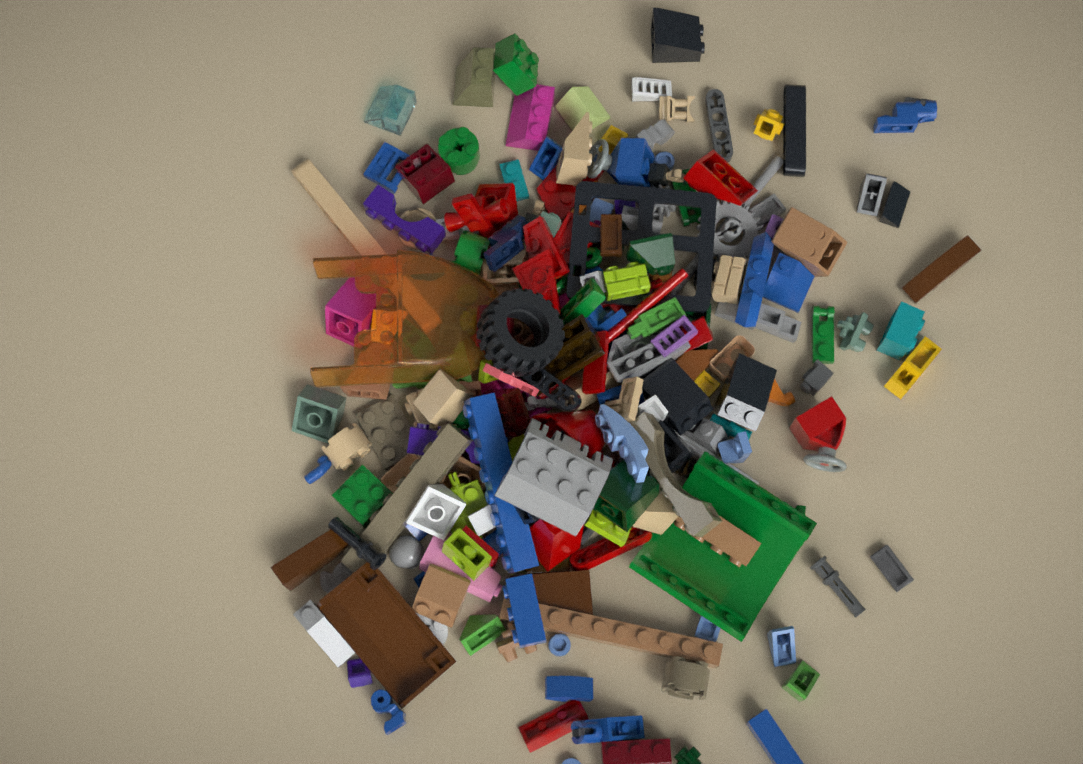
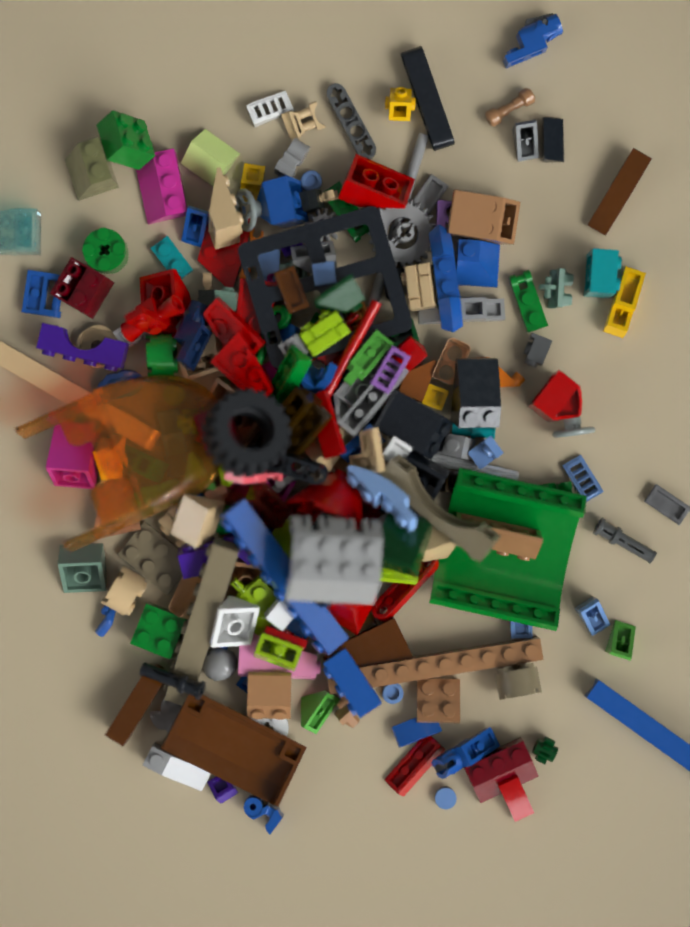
camera: 25 degrees left, 15 degrees up
(600, 669) = (438, 701): none -> medium nougat plate
(645, 229) = (324, 273): none -> medium blue tile
(676, 37) = (273, 42): black slope -> none
(828, 527) = (593, 481): none -> medium blue slope
(882, 161) = (524, 98): none -> medium nougat piece

